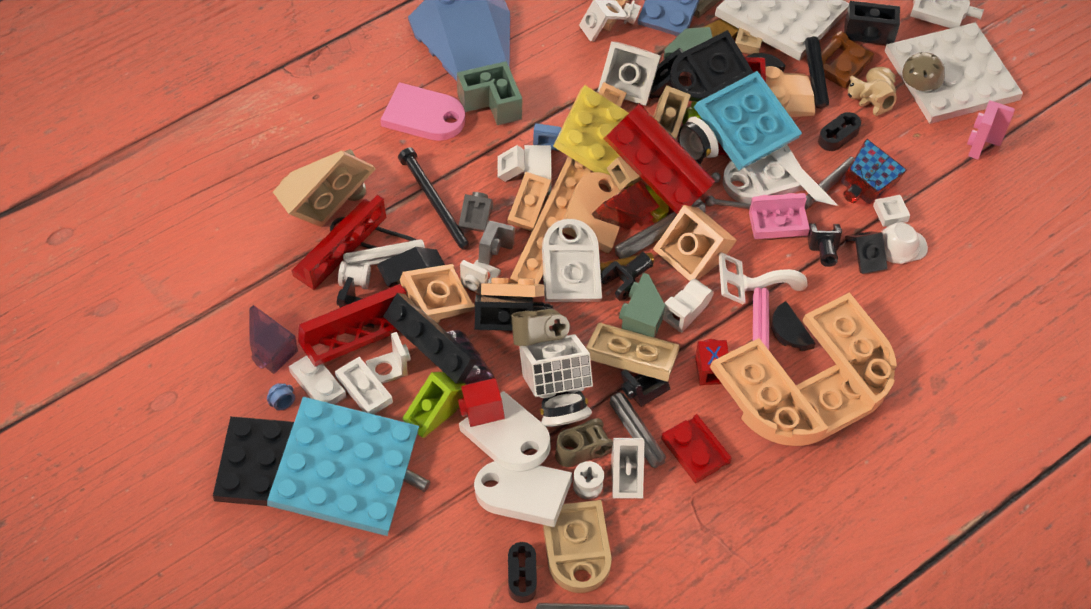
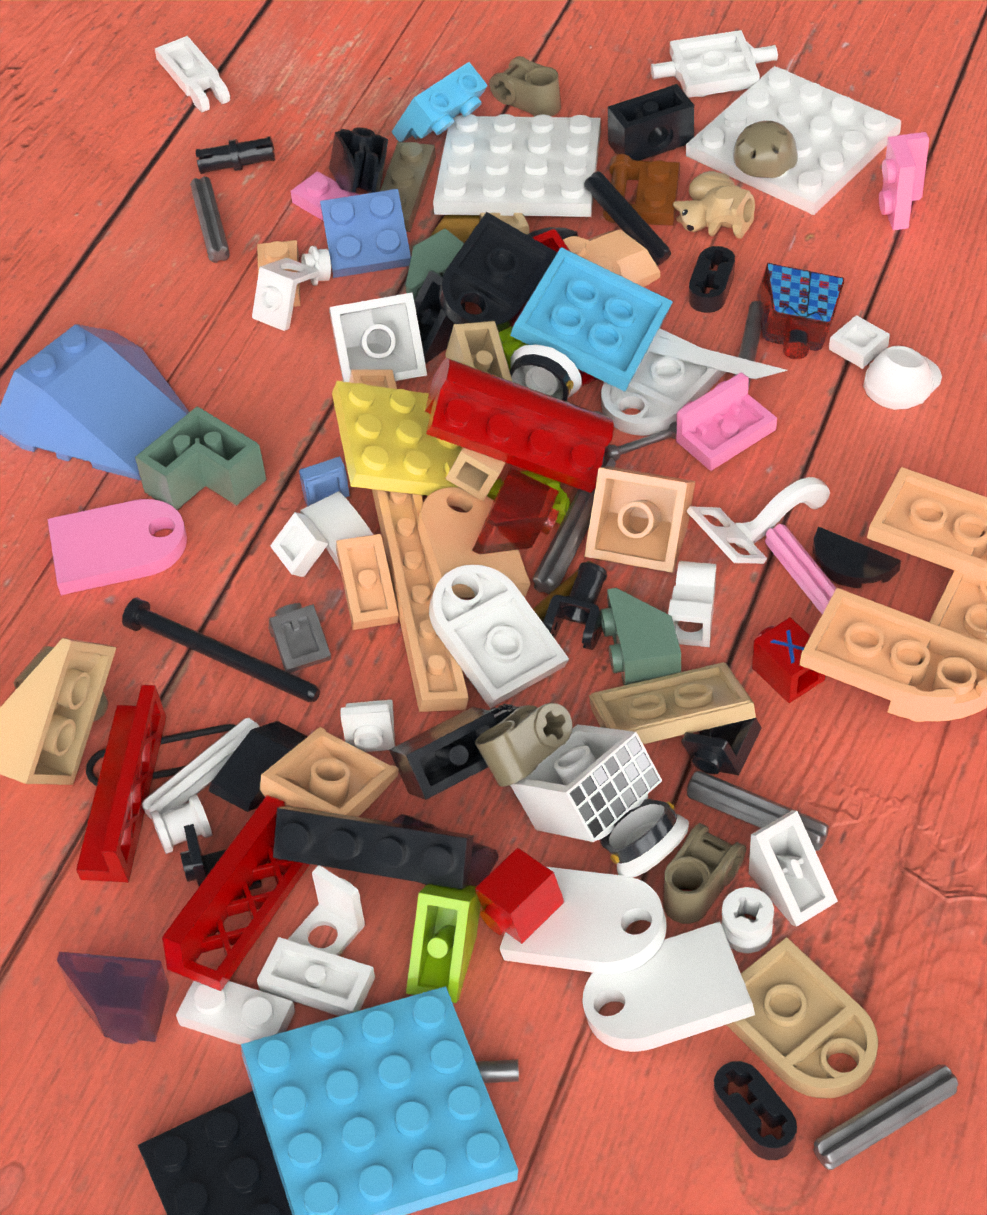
camera: 25 degrees left, 5 degrees down
(280, 396) = (196, 1067): medium blue plate -> none
(494, 237) = (355, 656): flat silver bracket -> none
(501, 287) = (456, 701): light nougat plate -> none
(696, 448) = (855, 790): red plate -> none
(826, 243) = (809, 425): black piece -> none
(869, 251) = (874, 404): black bracket -> none

